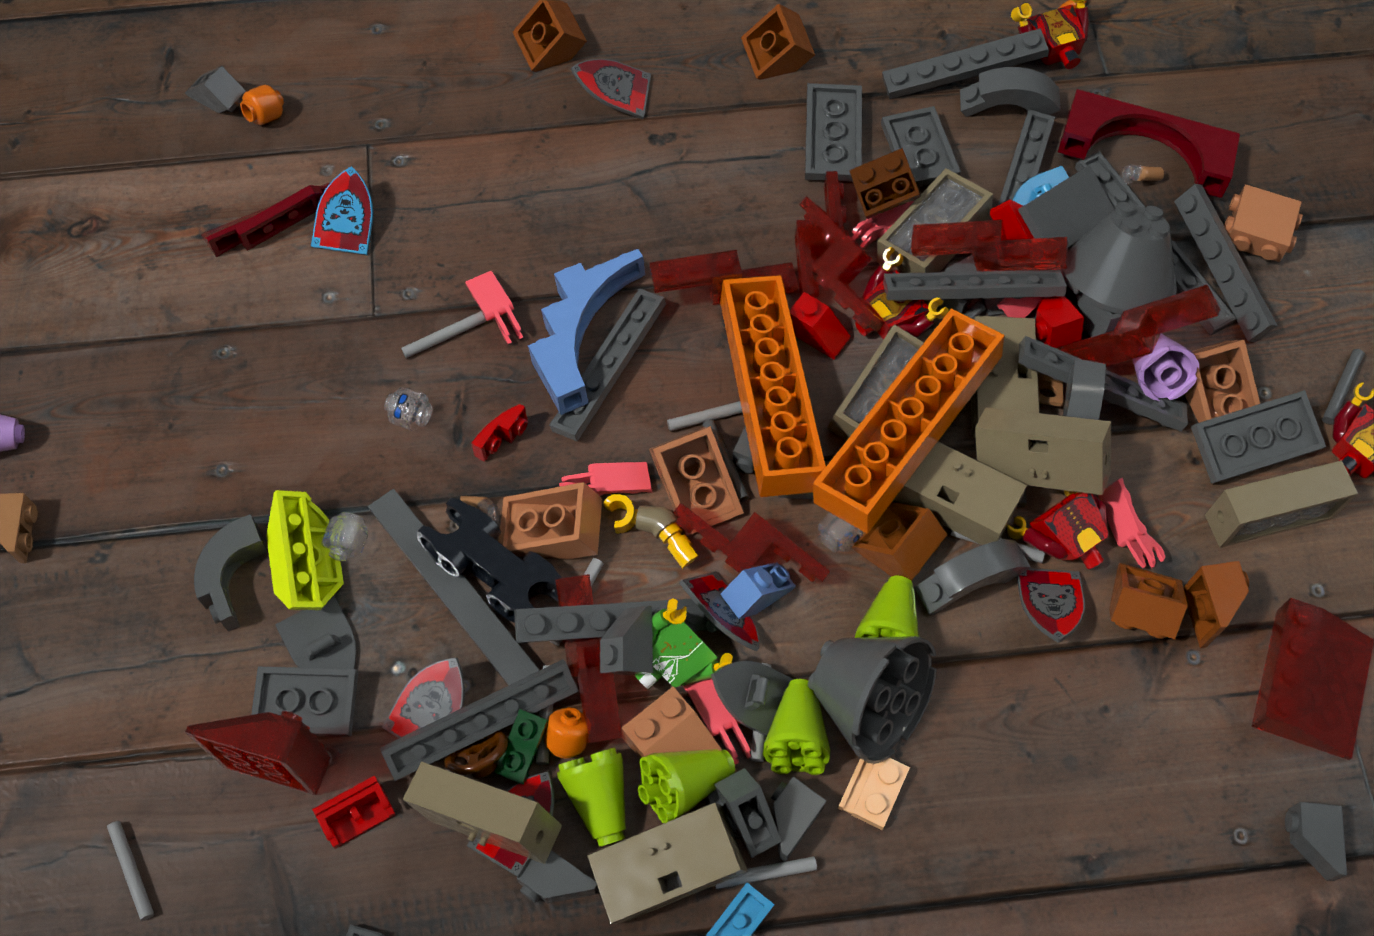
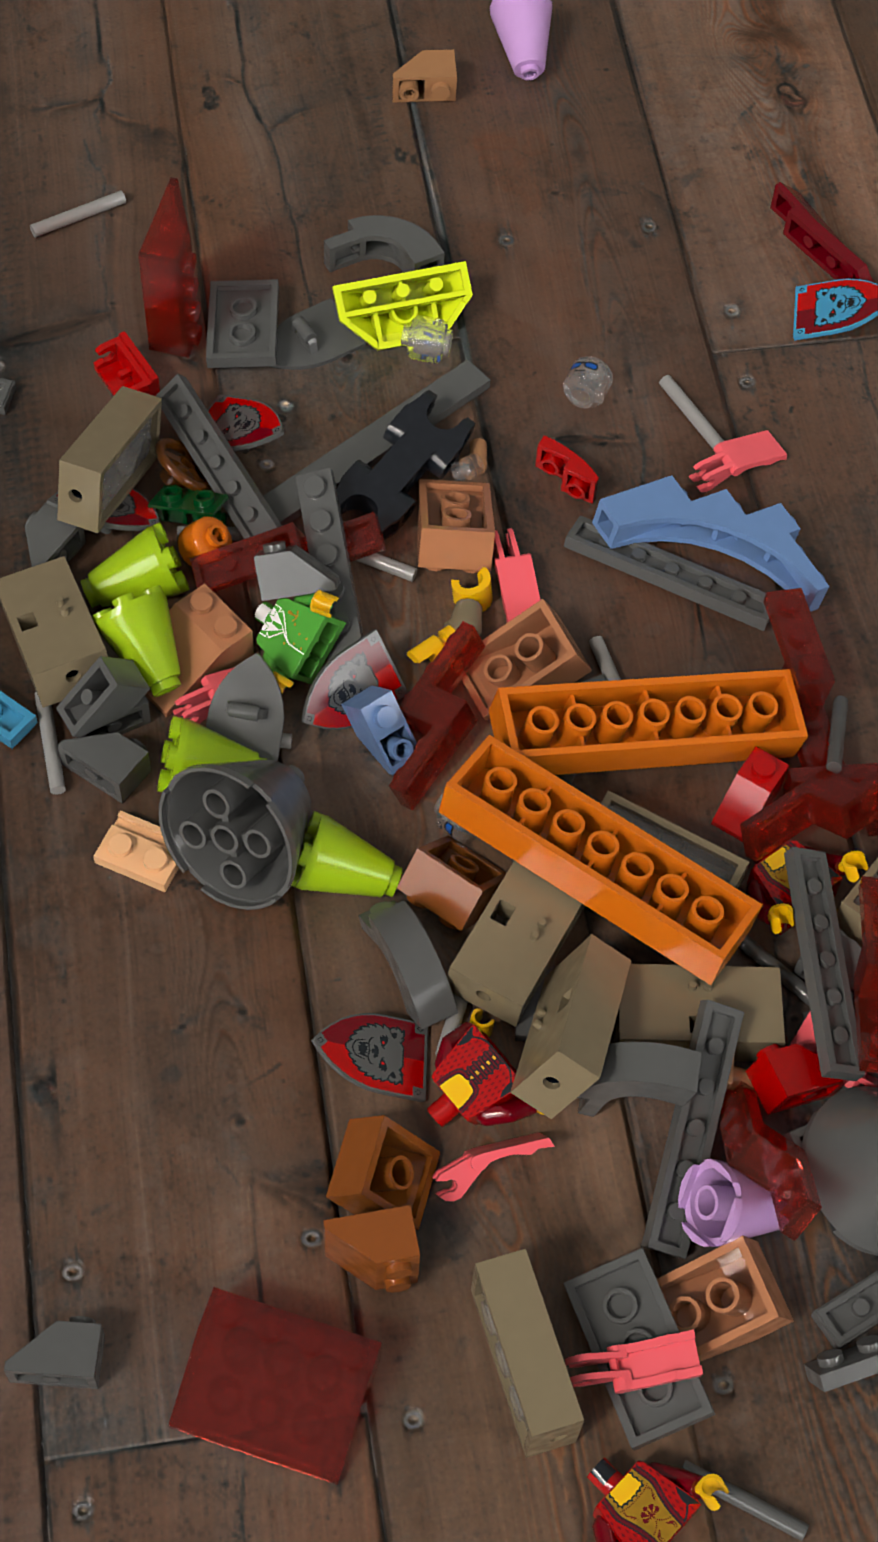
camera: 85 degrees right, 5 degrees down
(774, 261) = (837, 734): none -> dark grey bar
(1276, 432) = (642, 1363): none -> coral arm

